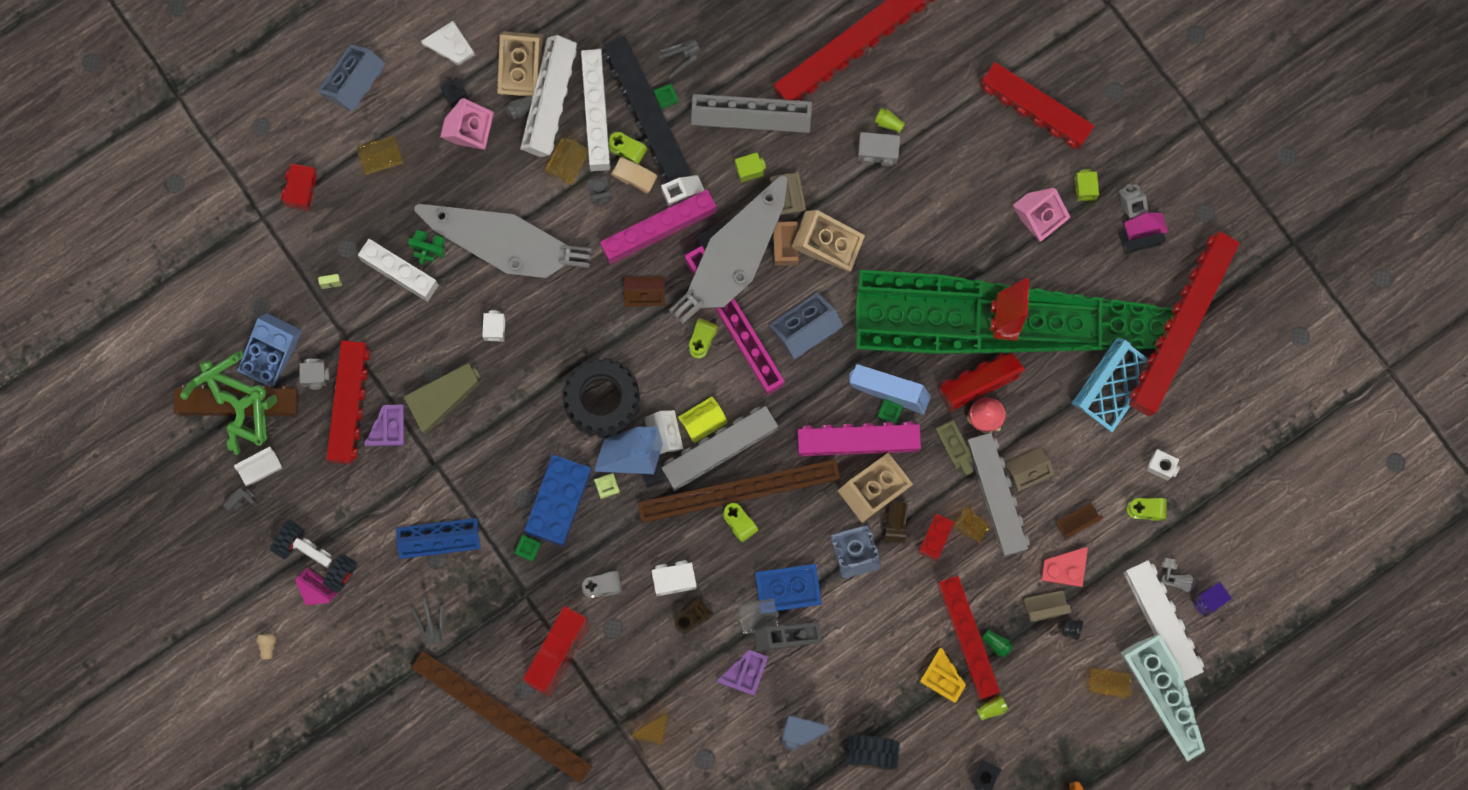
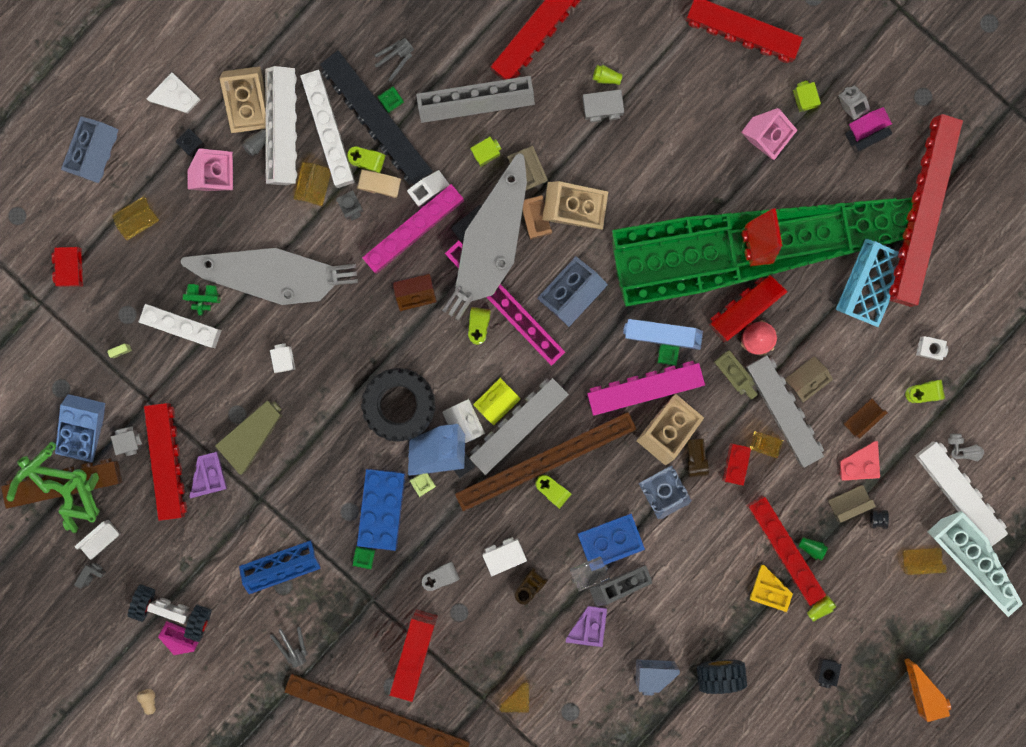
camera: 10 degrees left, 10 degrees up
(1211, 599) = (1002, 465): dark purple brick -> none

